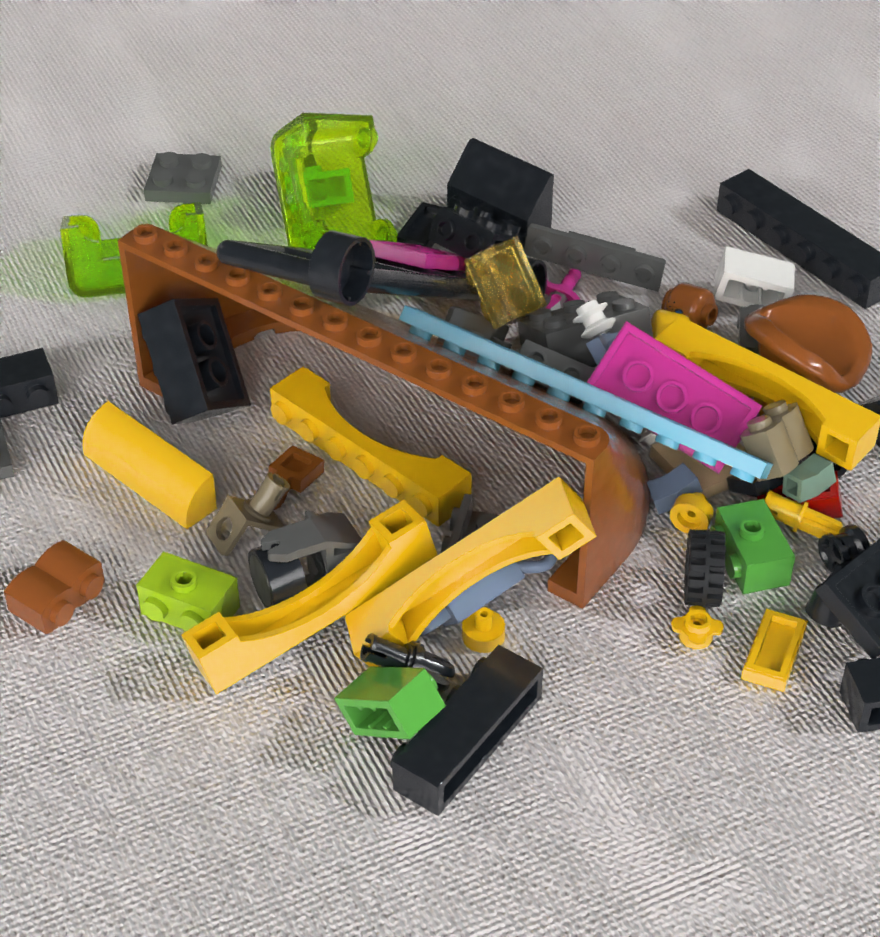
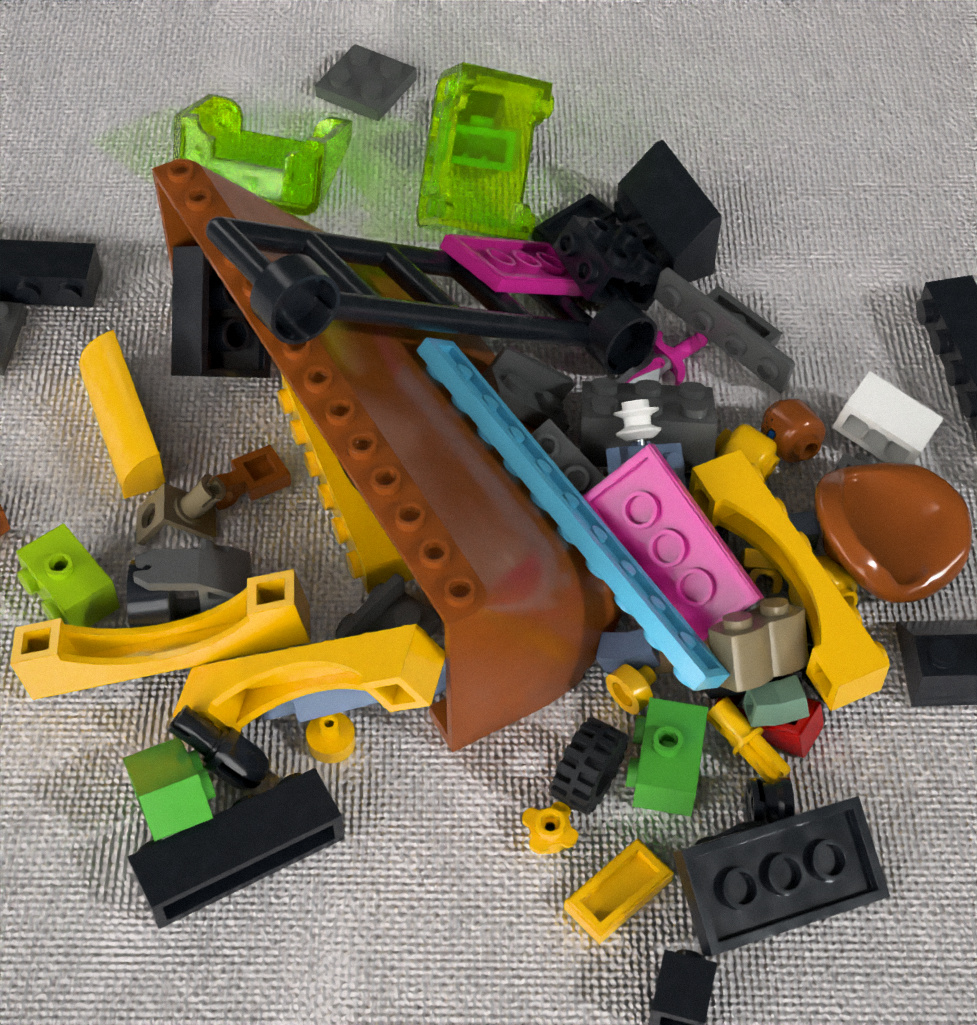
camera: 25 degrees right, 10 degrees up
(504, 282) = (573, 337): clear yellow bracket -> none

